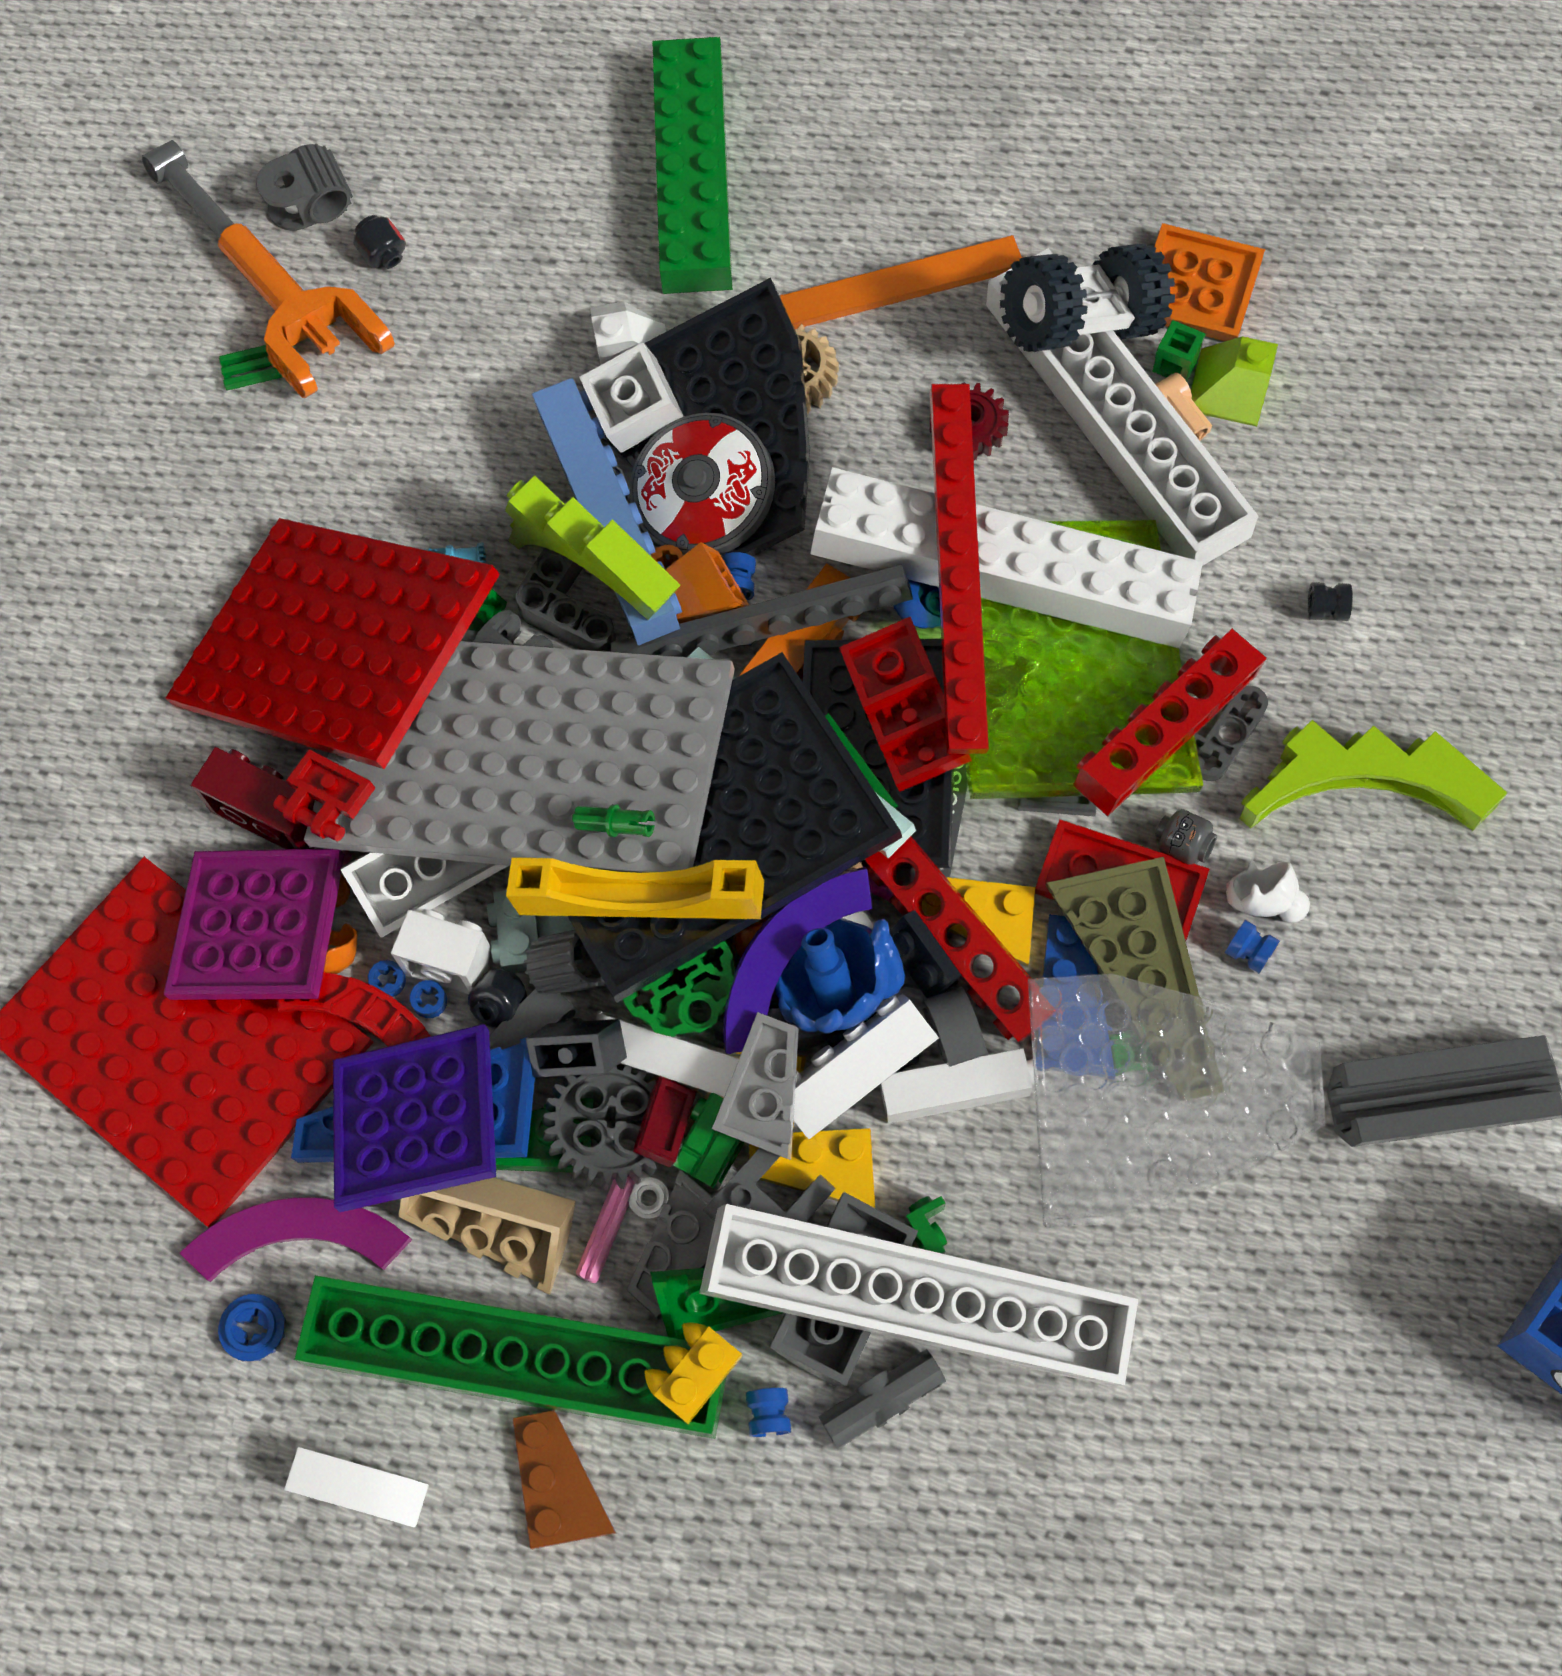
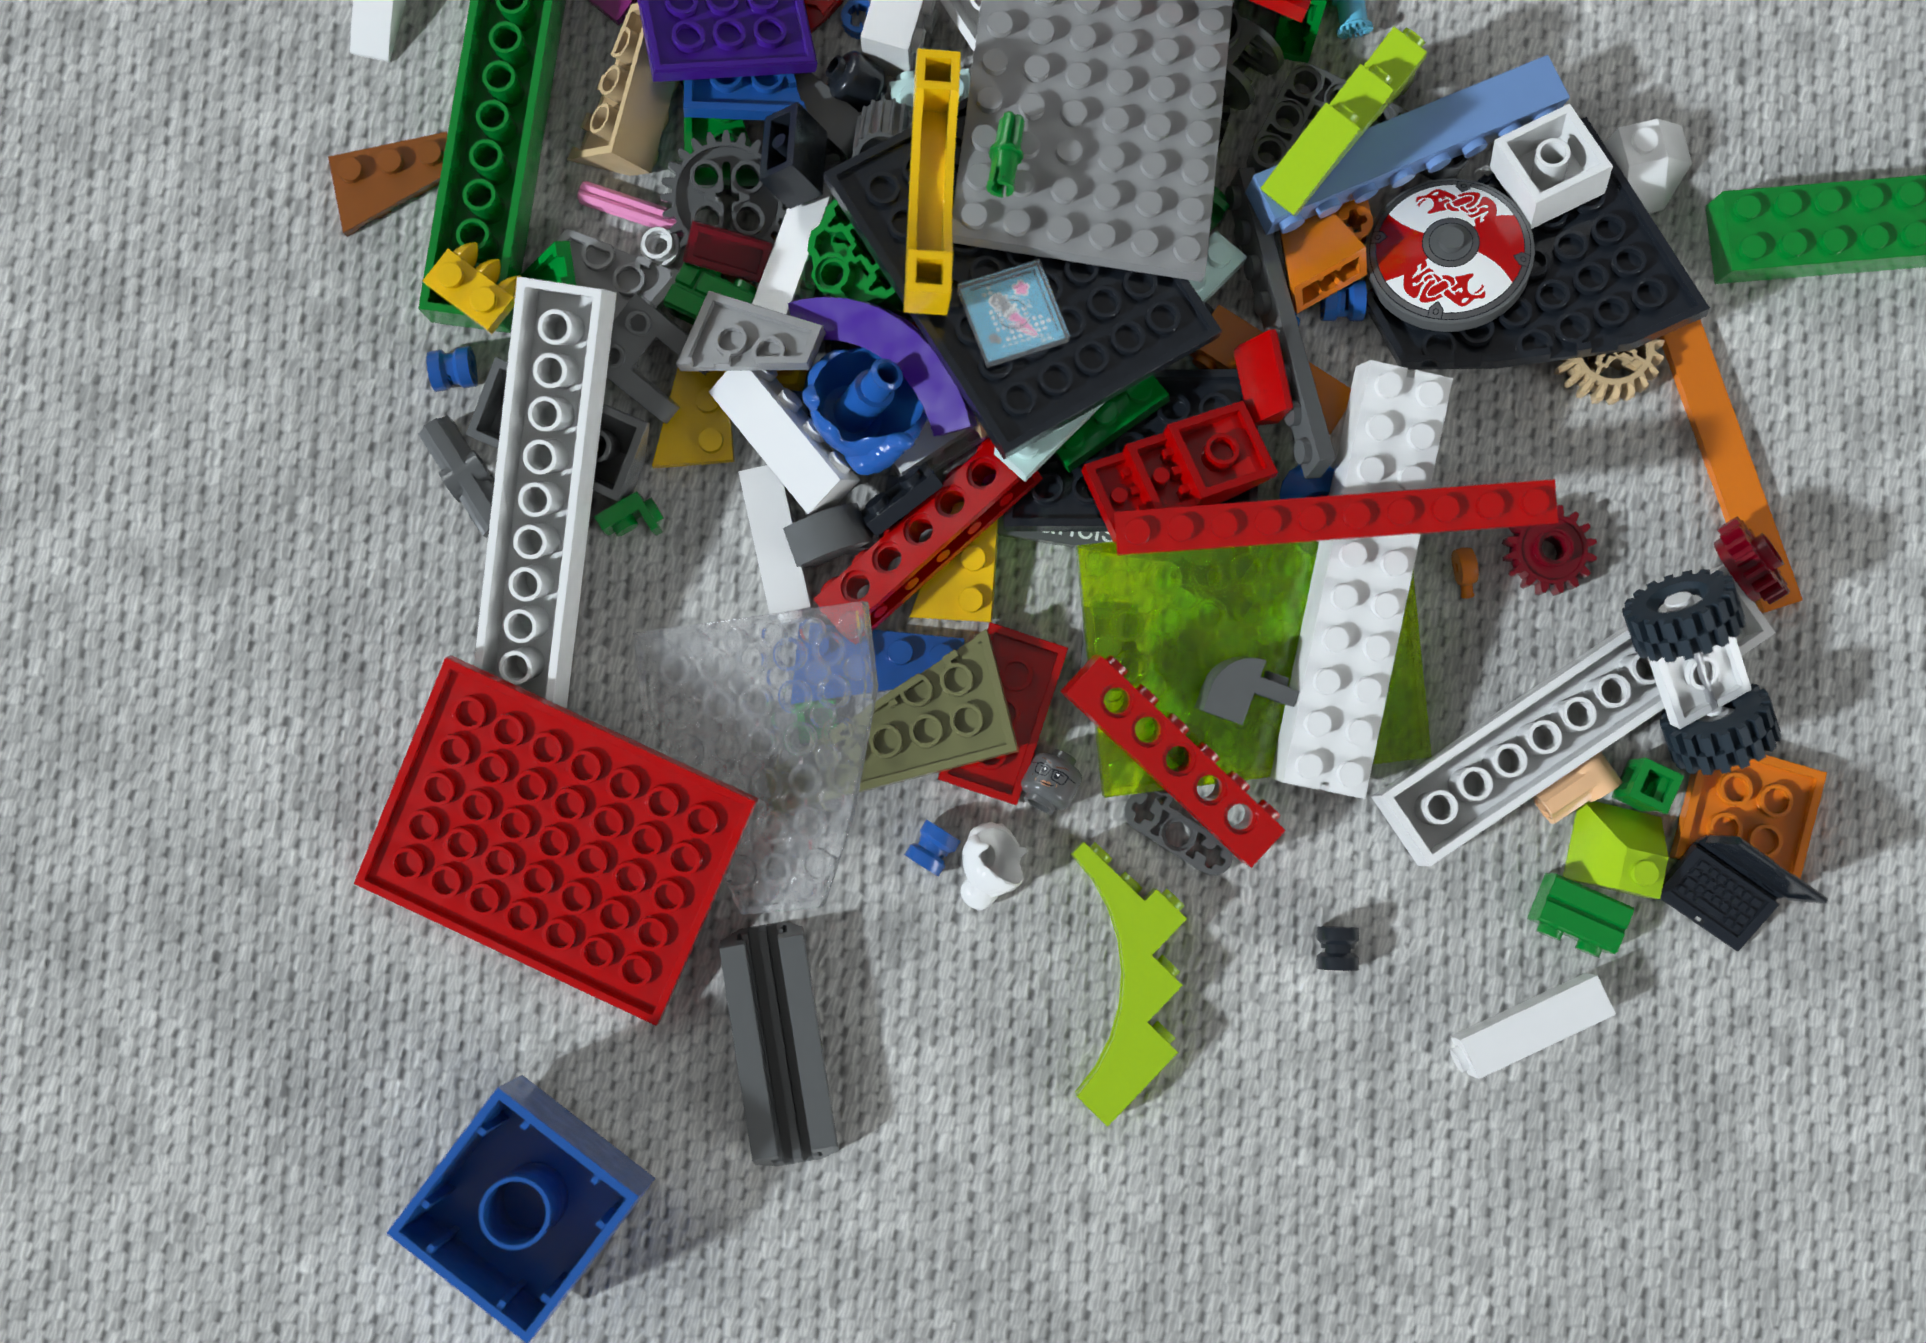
camera: 80 degrees right, 15 degrees up
(764, 822) = (1013, 313): none -> clear tile
(817, 629) = (1263, 378): none -> red slope
(986, 262) = (1751, 561): none -> dark red gear
(988, 487) = (1465, 570): none -> orange piece
(1100, 666) = (1233, 683): none -> dark grey brick
(1261, 1305) = (554, 840): none -> red plate
(1264, 295) = (1731, 887): none -> black piece
(1290, 409) = (1580, 914): none -> green brick
(1390, 451) = (1531, 1026): none -> white brick

